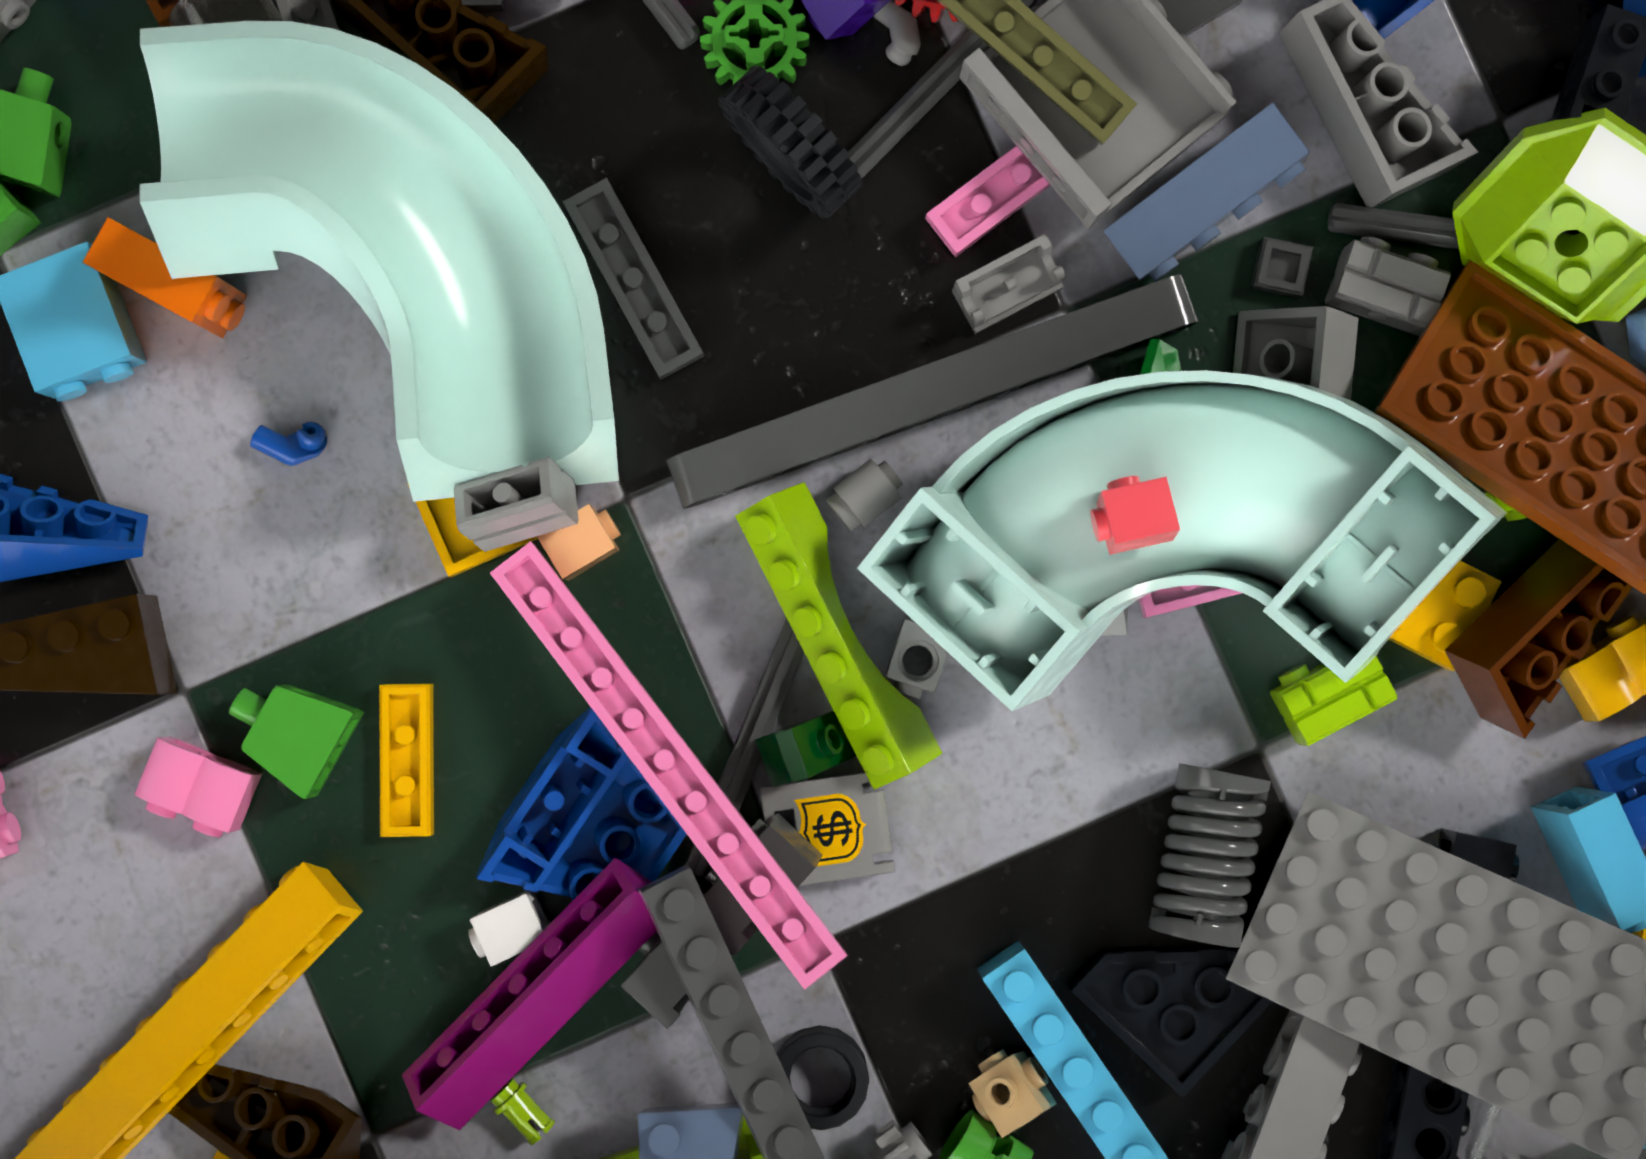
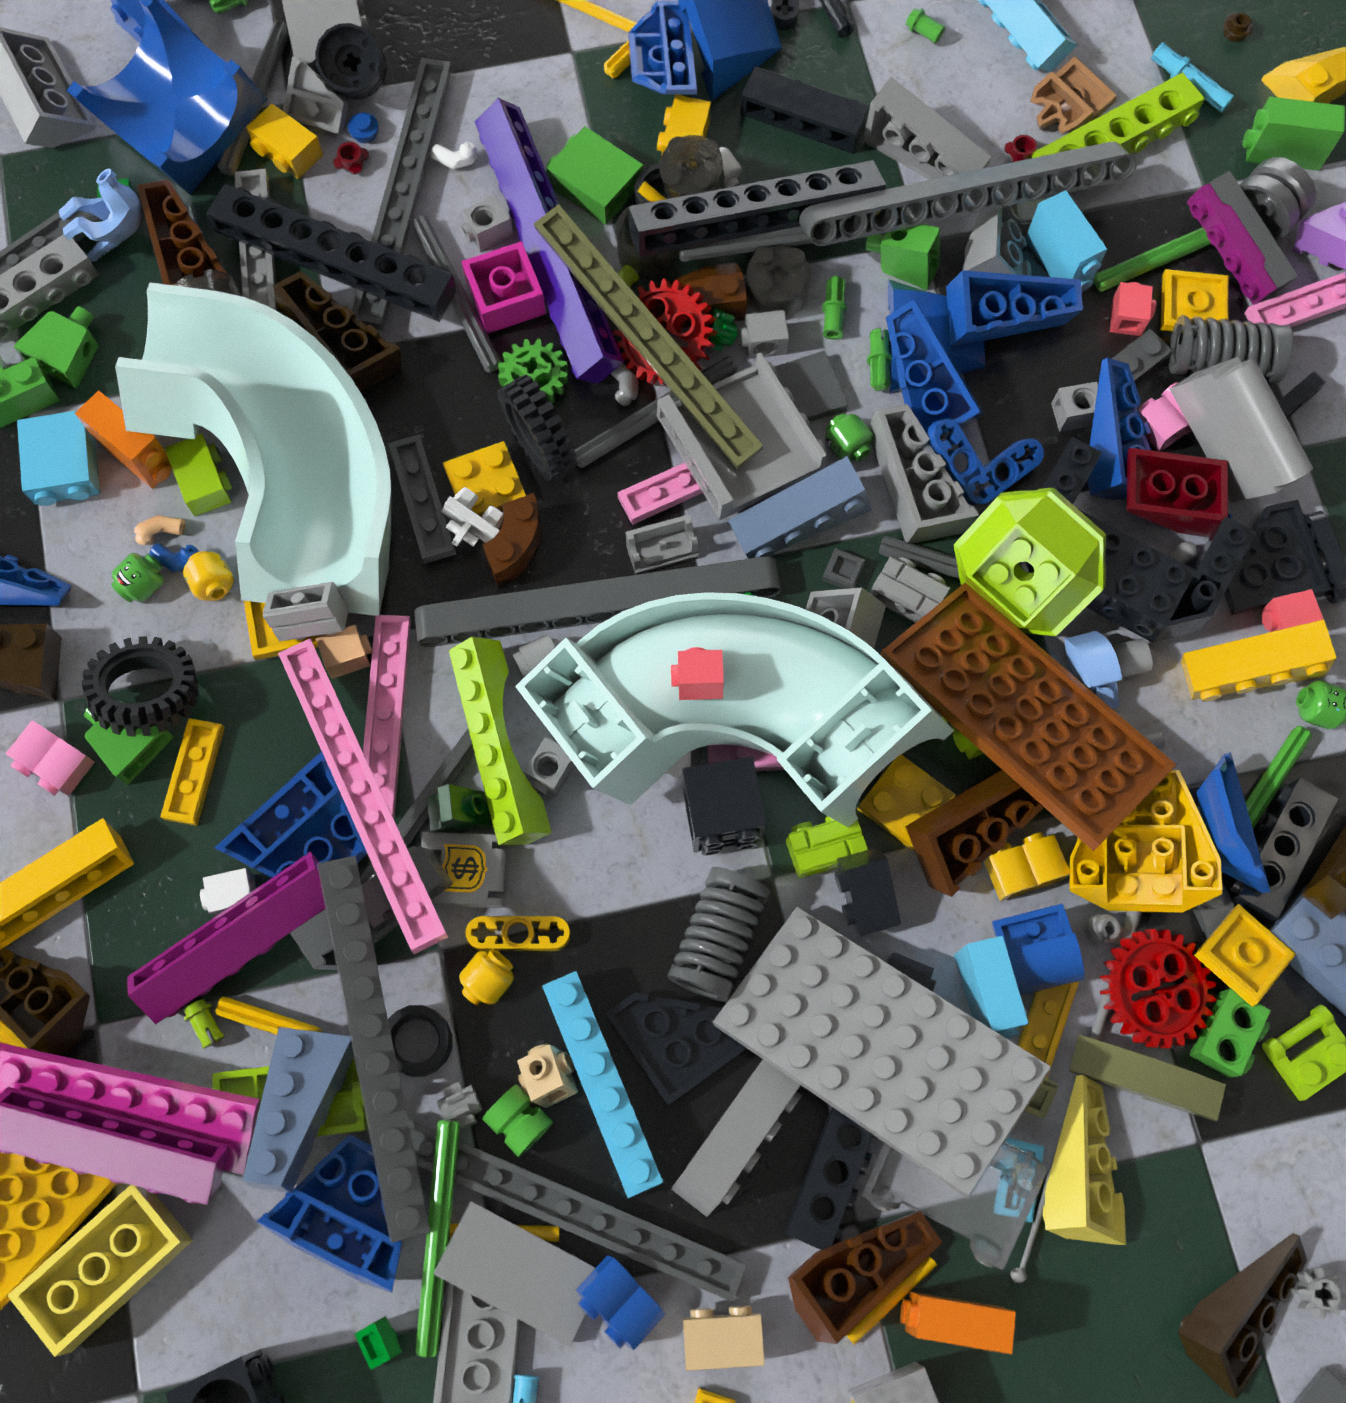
camera: 15 degrees right, 15 degrees down
(237, 407) = (146, 529): none -> light nougat arm
(245, 488) = (137, 577): none -> bright green head
(292, 310) = (199, 475): none -> lime brick
(325, 707) = (146, 714): none -> black tyre
(349, 465) = (208, 576): none -> yellow head
(607, 1088) = (258, 1017): none -> yellow axle
(660, 605) = (386, 702): none -> bright pink plate
(699, 292) = (460, 511): none -> white hips
(720, 231) = (488, 475): none -> yellow plate
(793, 320) = (516, 541): none -> reddish brown brick
(896, 973) = (486, 977): none -> yellow head
(940, 914) = (544, 926): none -> yellow beam
(1183, 673) = (723, 805): none -> black brick
(1255, 54) = (849, 437): none -> bright green head
(1407, 753) = (867, 891): none -> black brick
(1462, 75) = (977, 473): none -> blue beam

